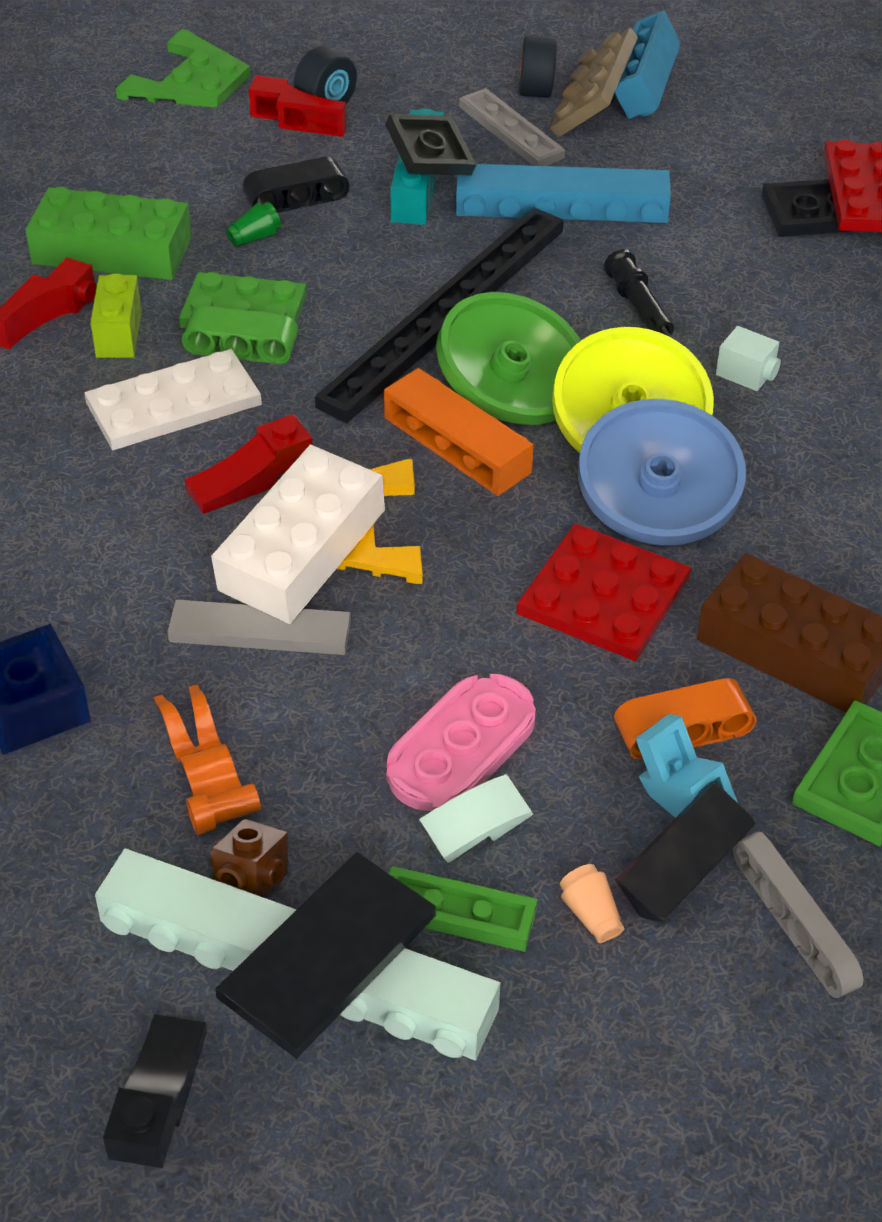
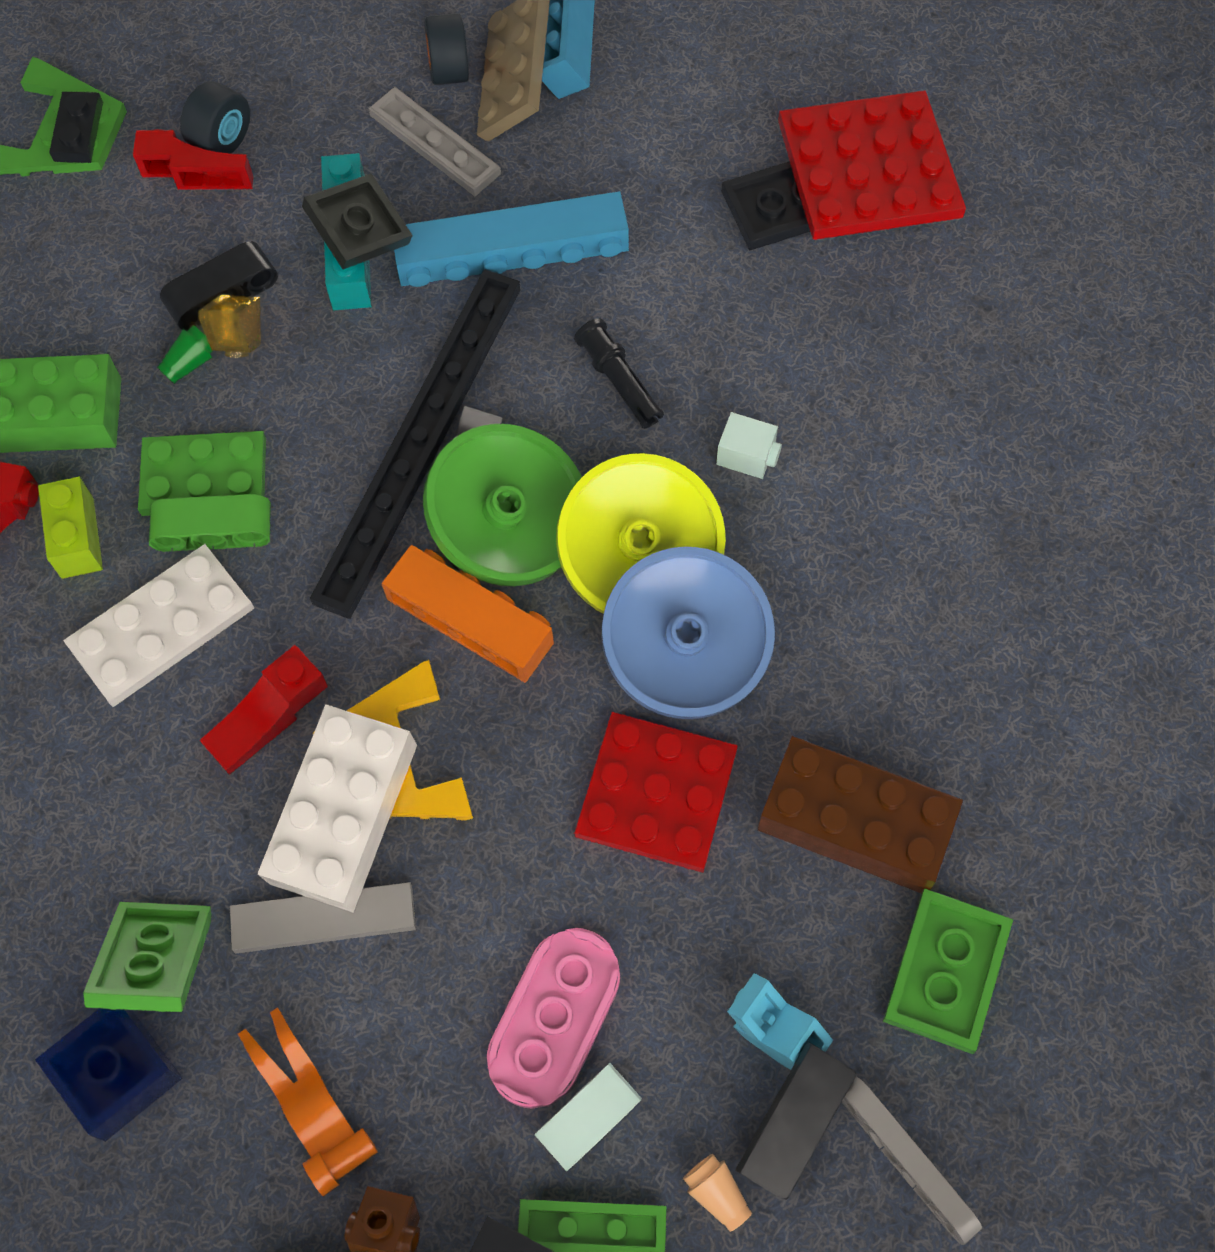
camera: 10 degrees left, 20 degrees up
(89, 606) = (148, 957): none -> bright green plate
(205, 69) = (76, 127): none -> black plate
(300, 203) = (232, 324): none -> clear yellow slope
(709, 711) = (765, 944): orange beam -> none

